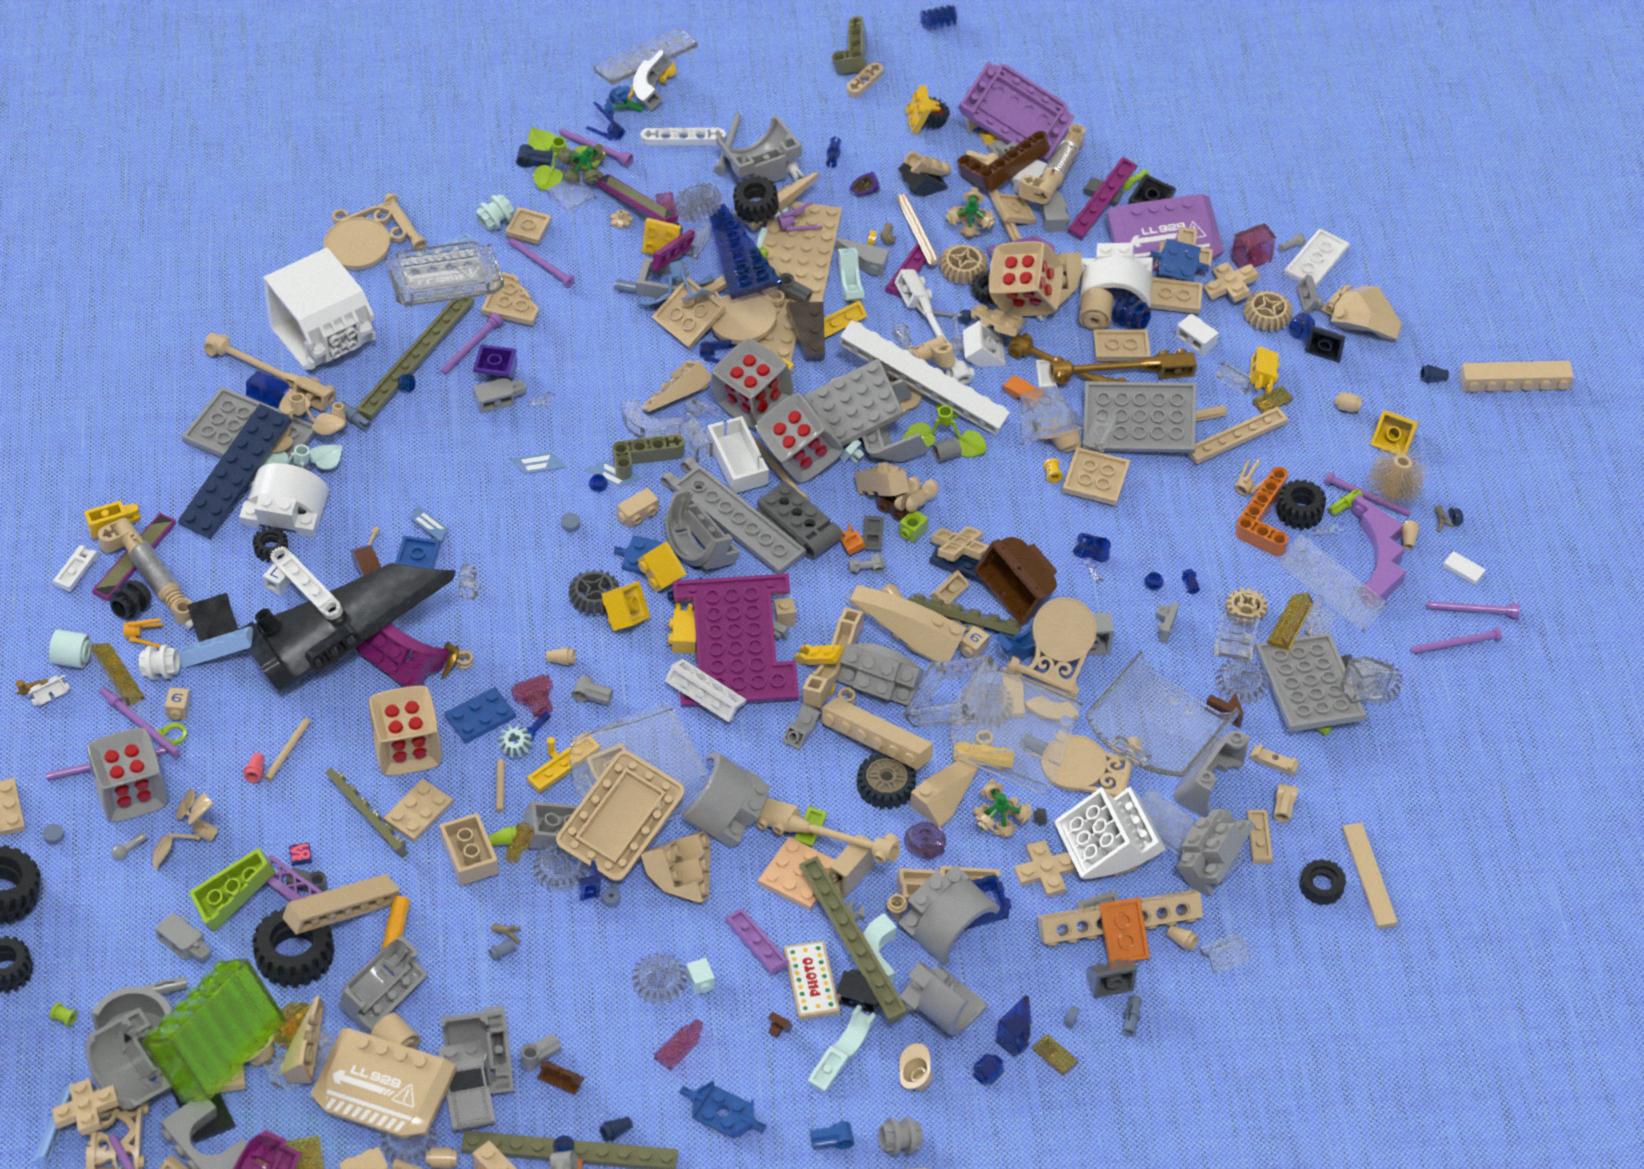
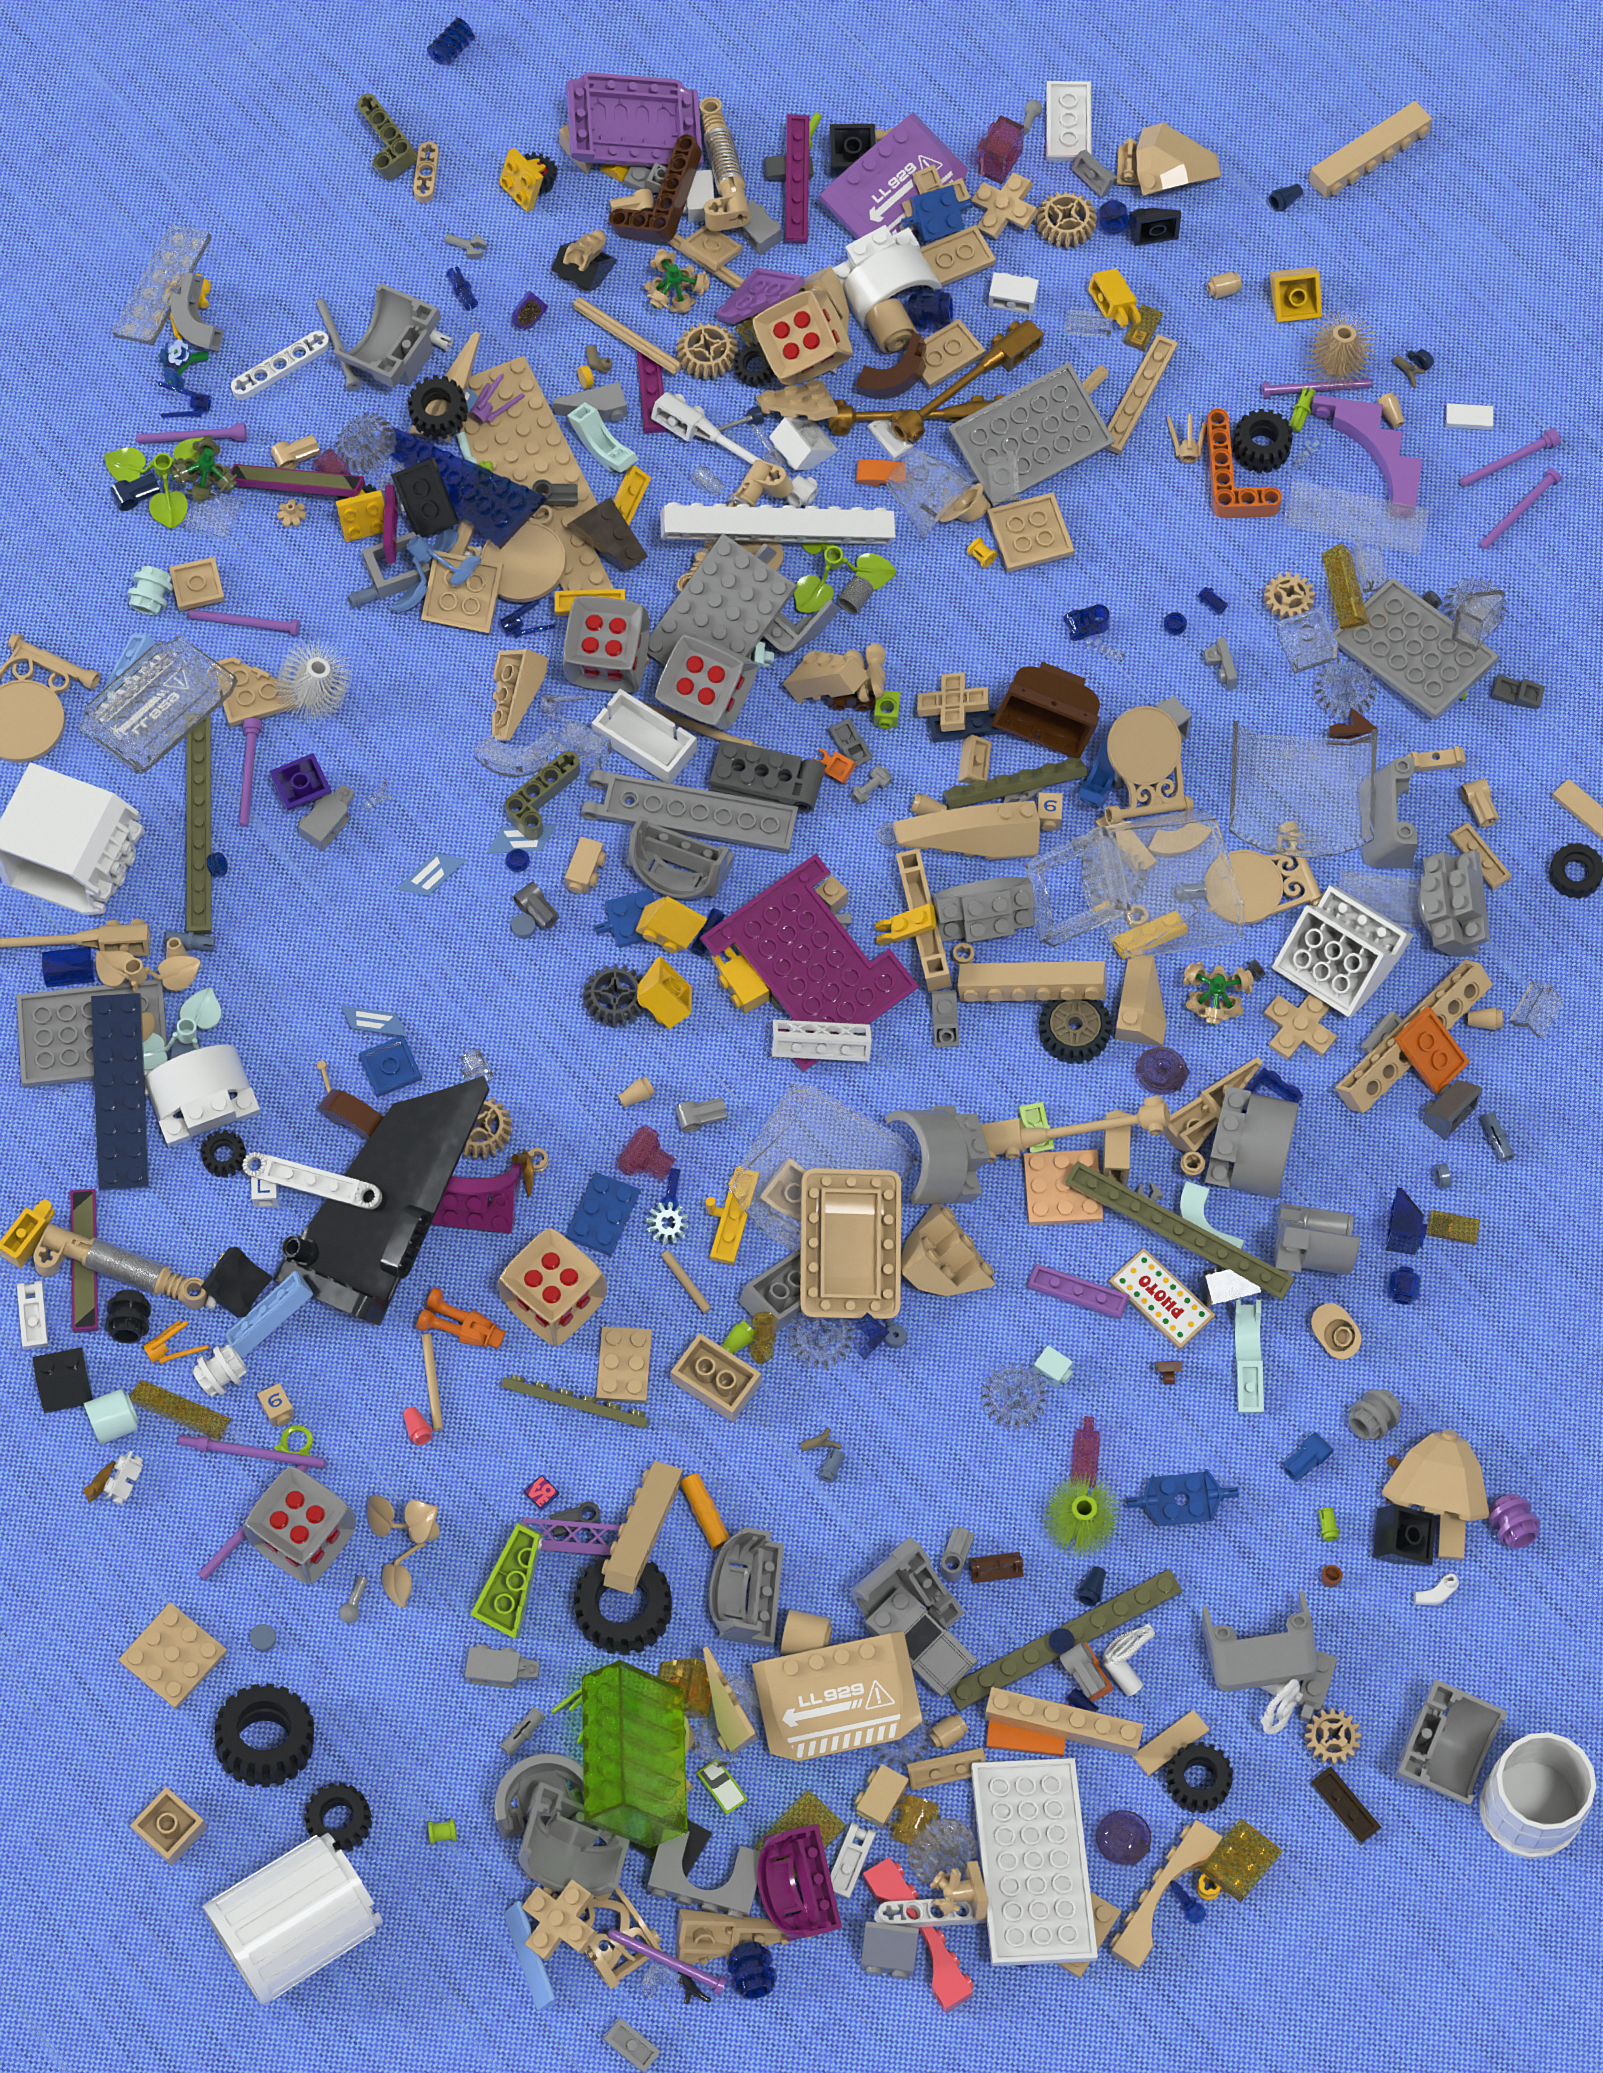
camera: 30 degrees left, 15 degrees up
(61, 611) = (63, 1379): none -> black slope
(264, 1100) = (722, 1787): none -> slope
(340, 731) = (475, 1330): none -> orange piece
(451, 611) = (491, 1142): none -> tan gear
(550, 308) = (313, 681): none -> white piece
(587, 511) = (532, 900): none -> flat silver piece
(641, 1075) = (1082, 1515): none -> lime piece
(646, 185) = (288, 454): none -> tan piece
(707, 247) = (425, 498): none -> black tile
(859, 133) = (469, 245): none -> light grey bar
(1077, 341) = (897, 379): none -> reddish brown arch
(1363, 748) = (1517, 693): none -> dark grey slope

